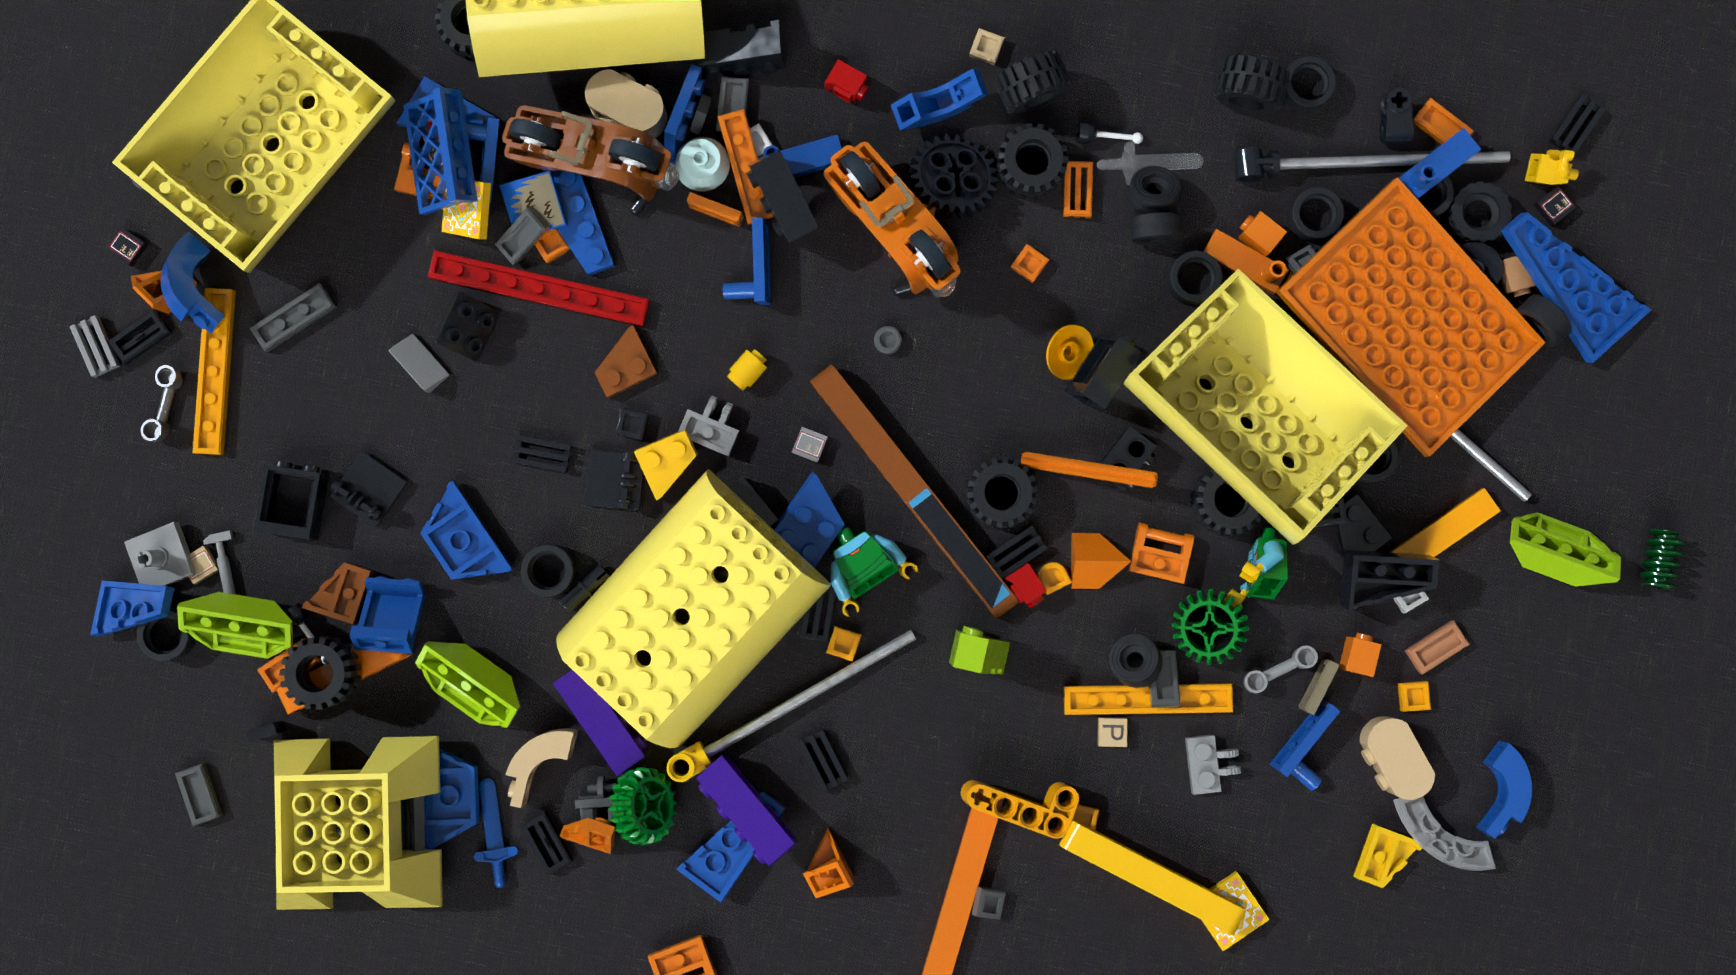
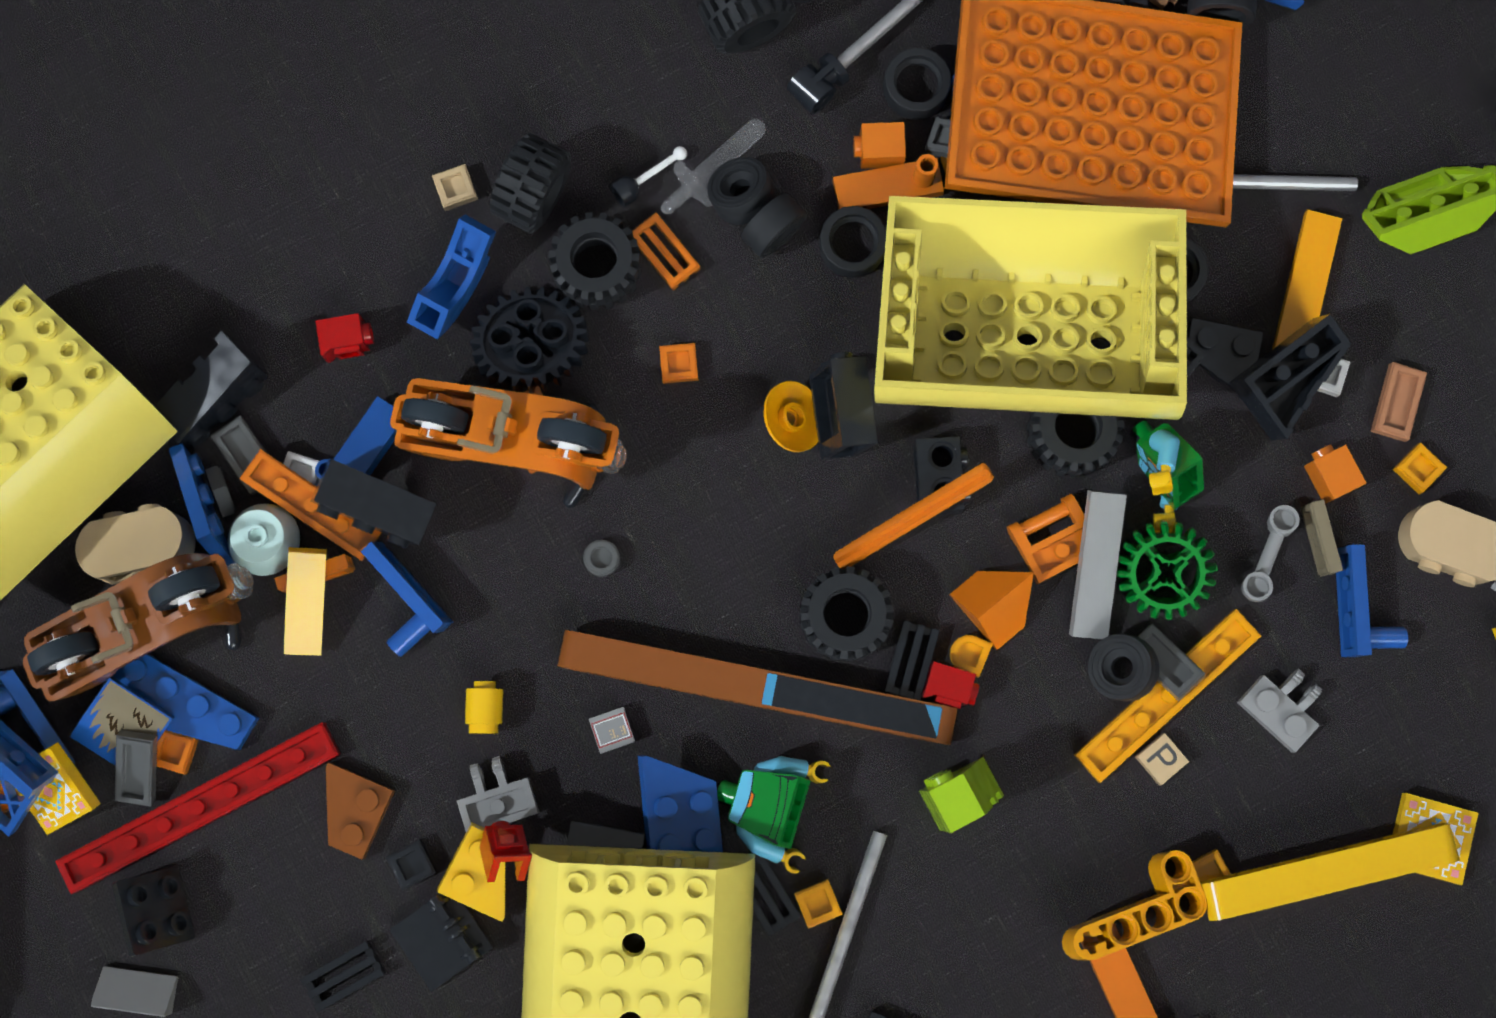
camera: 45 degrees left, 5 degrees down
(695, 457) = (504, 844): none -> red window
(696, 220) = (304, 601): none -> yellow tile
(1173, 589) = (1097, 564): none -> light grey tile

